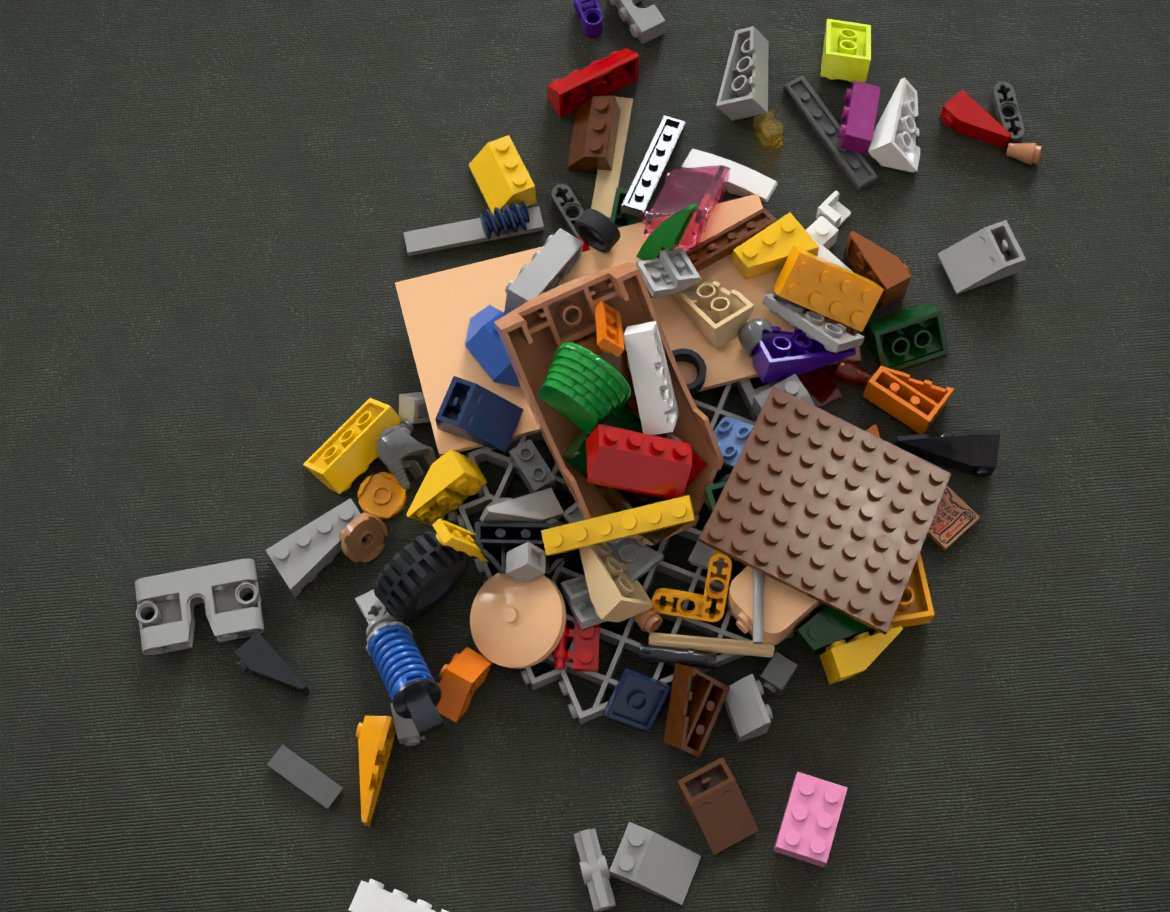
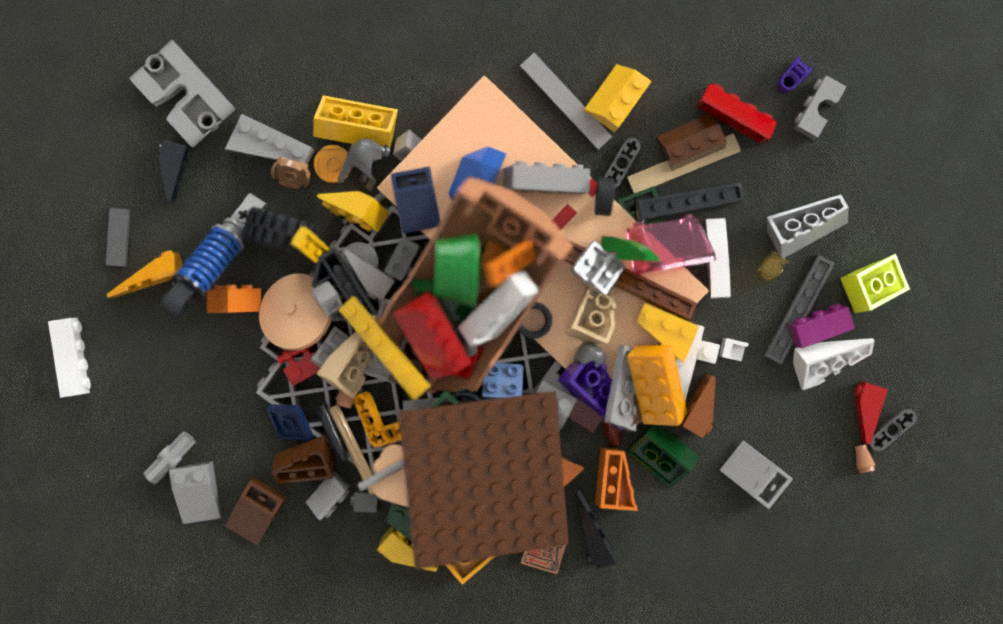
camera: 60 degrees right, 20 degrees up
(505, 219) = (582, 120): dark blue piece -> none
(810, 819) = (282, 575): bright pink brick -> none

